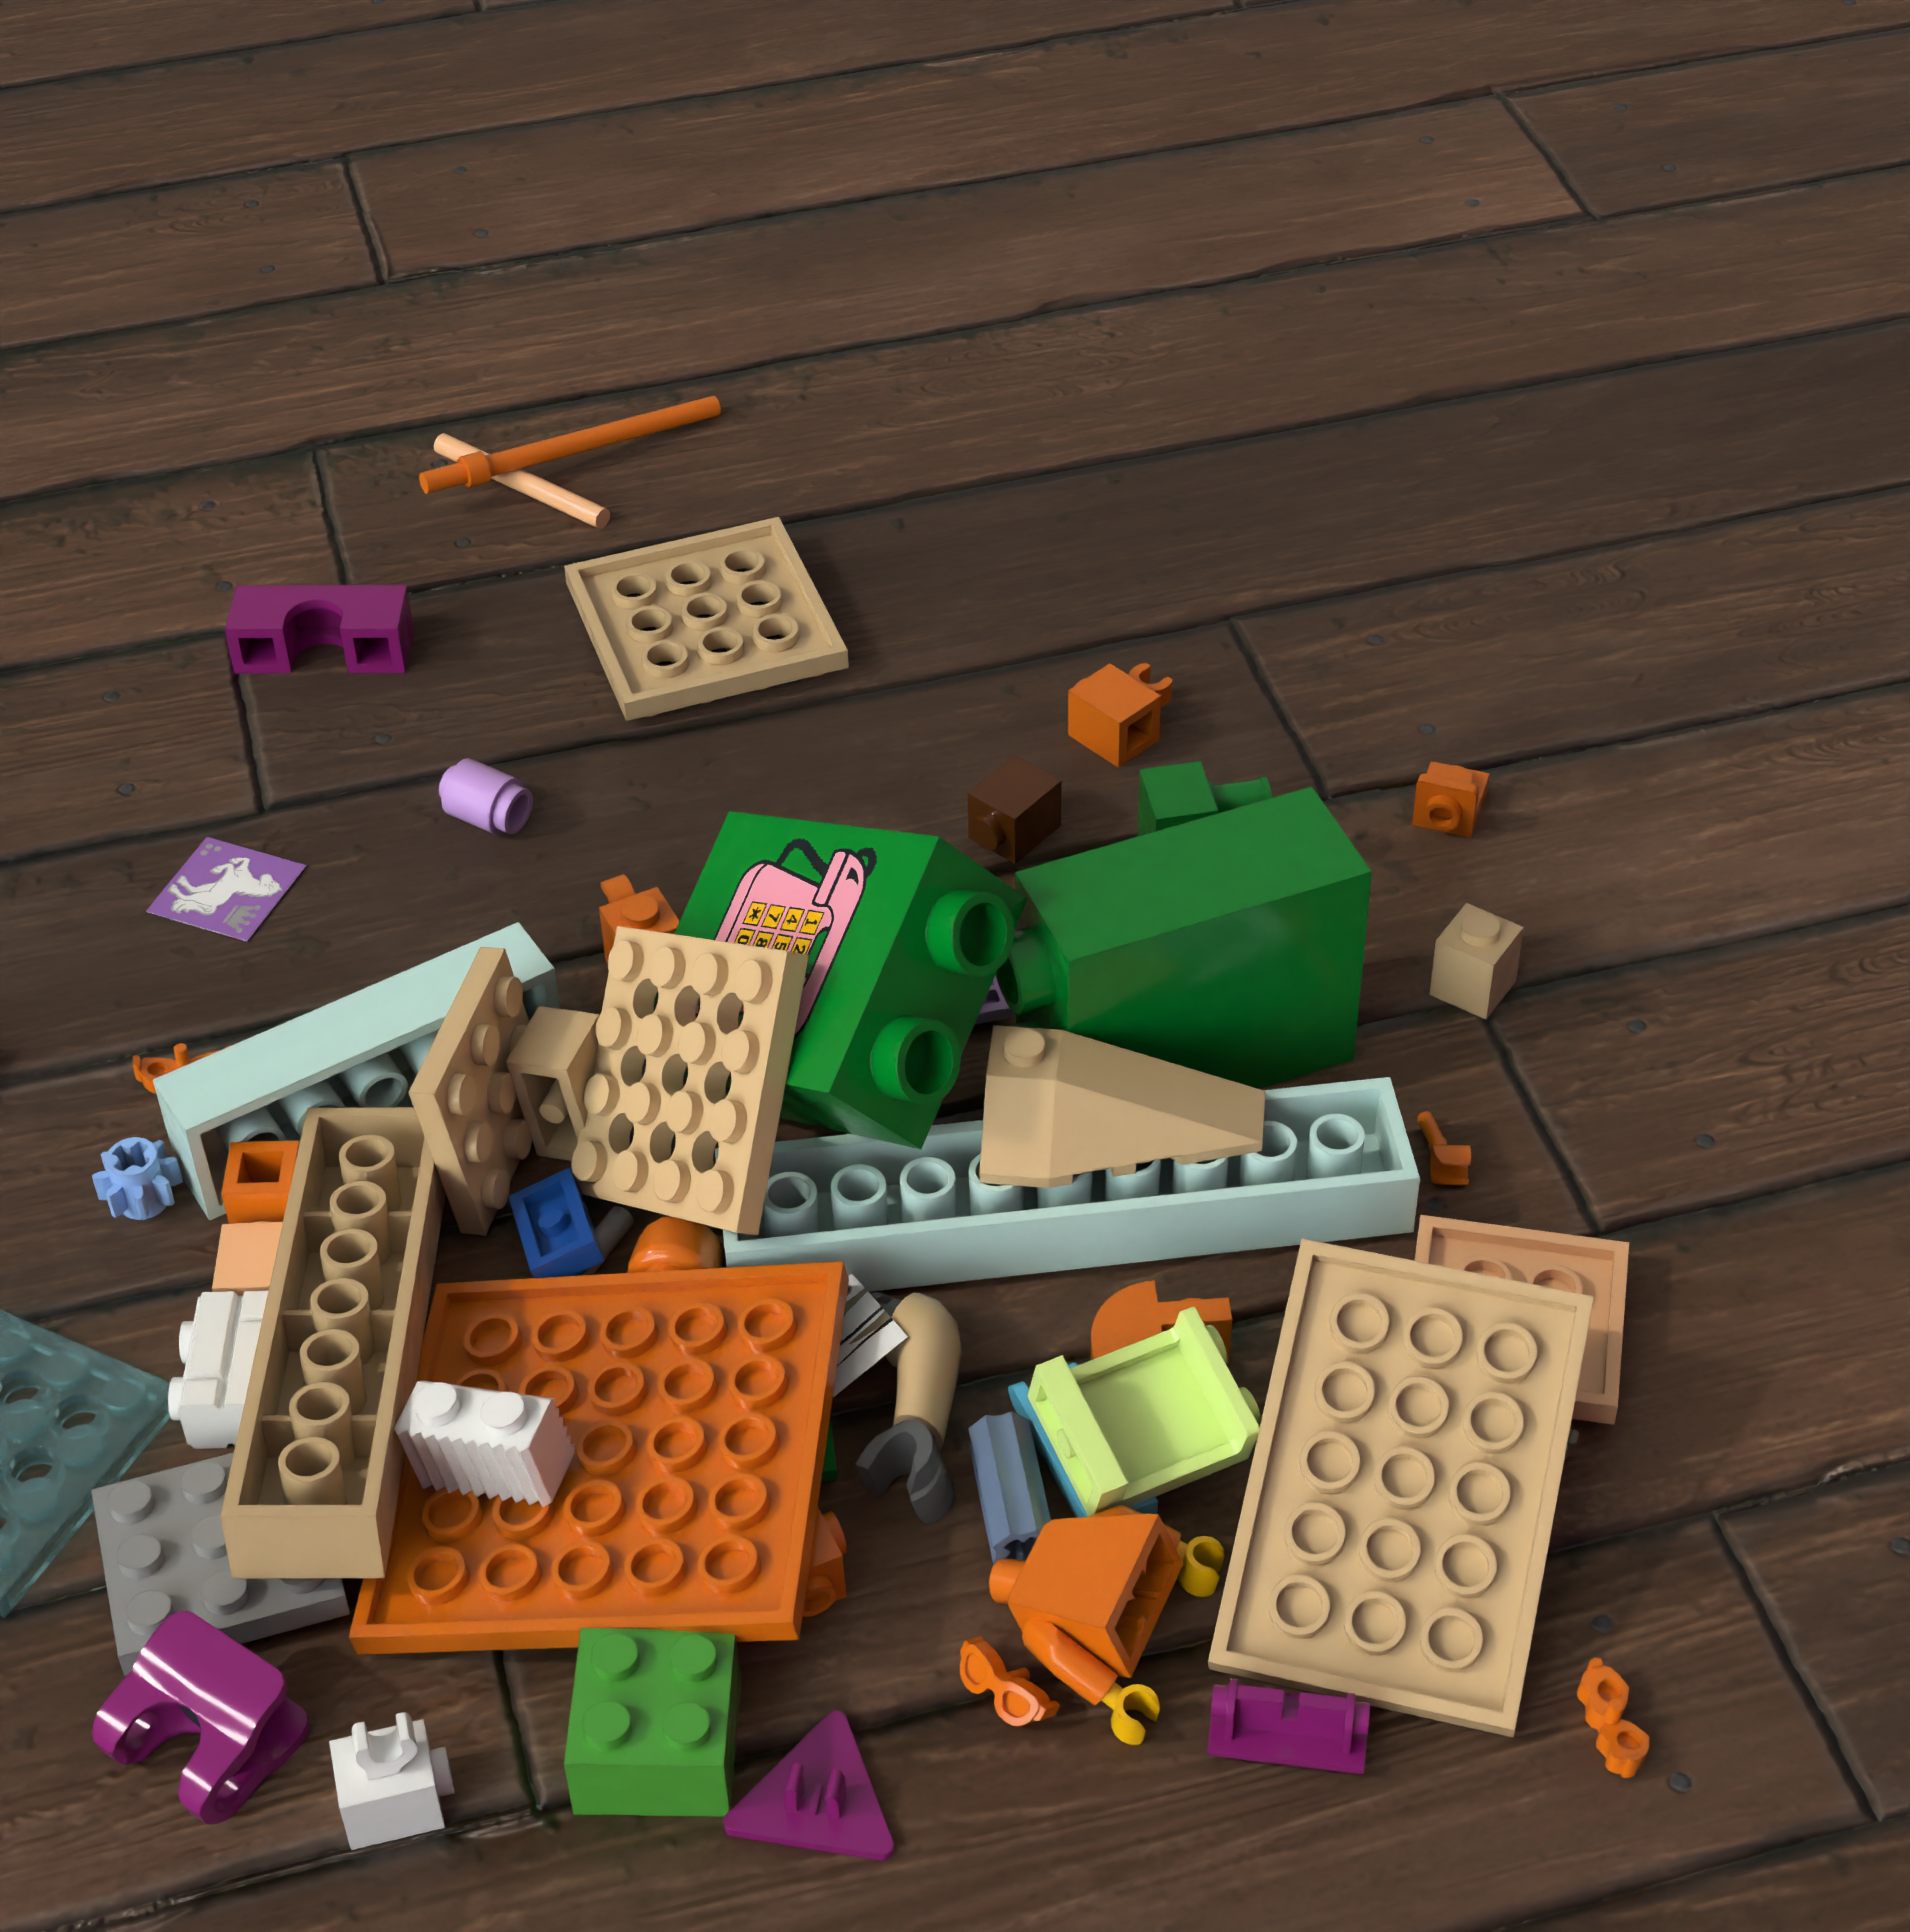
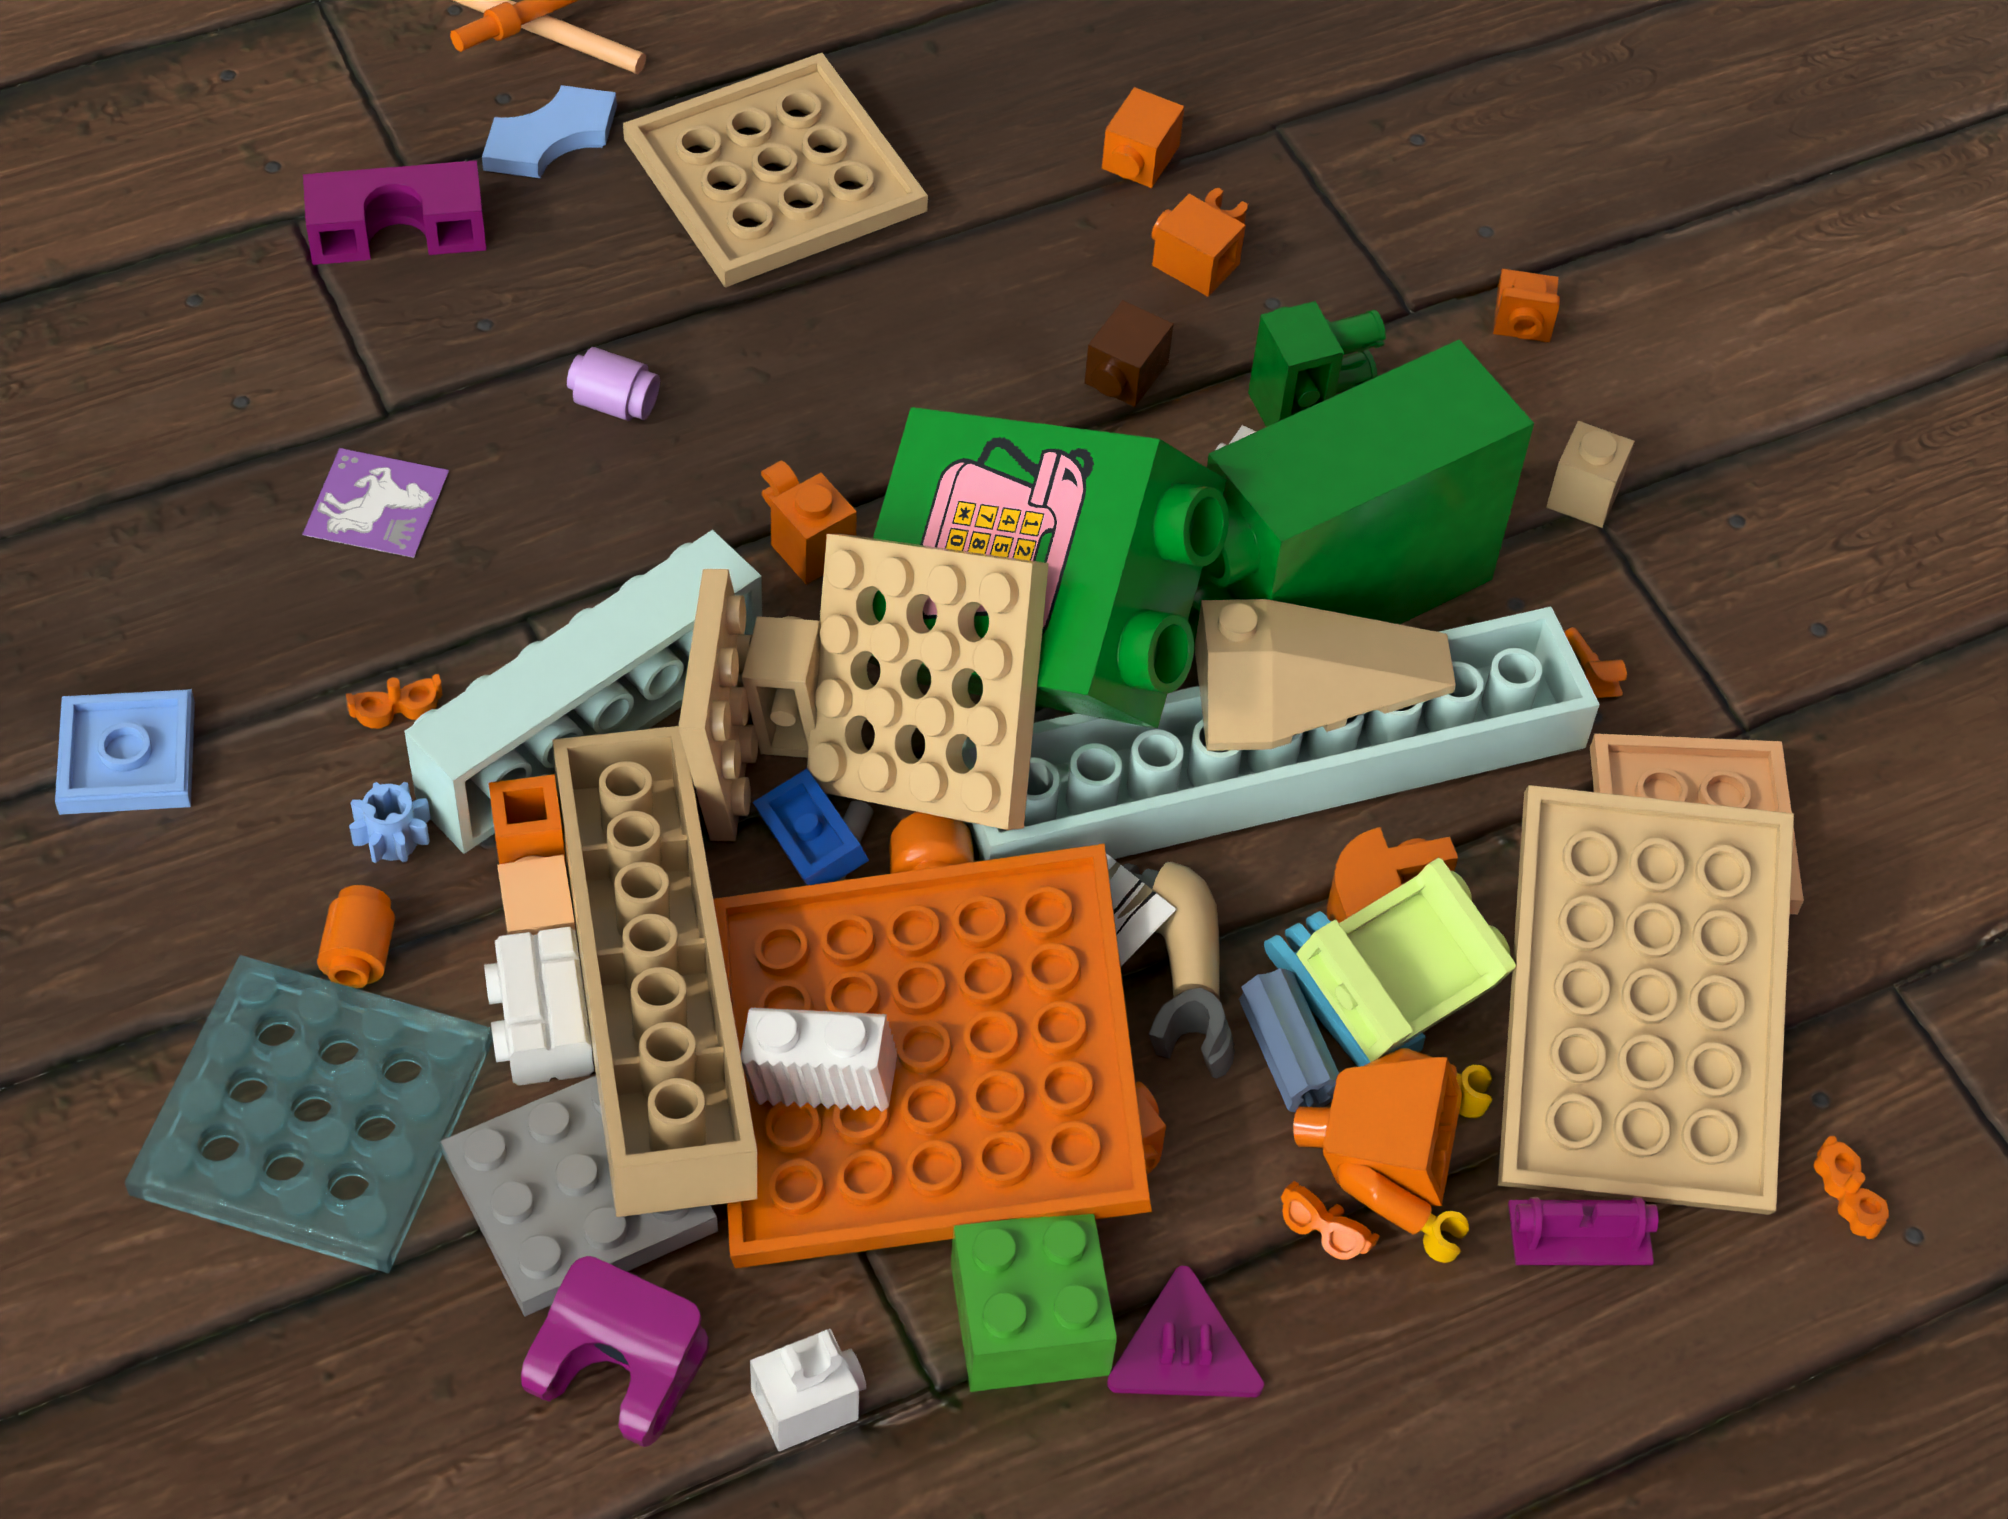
camera: 15 degrees left, 10 degrees up
(70, 1283) = (356, 936): none -> orange brick
(474, 580) = (567, 123): none -> light blue tile
(1082, 613) = (1142, 137): none -> orange brick

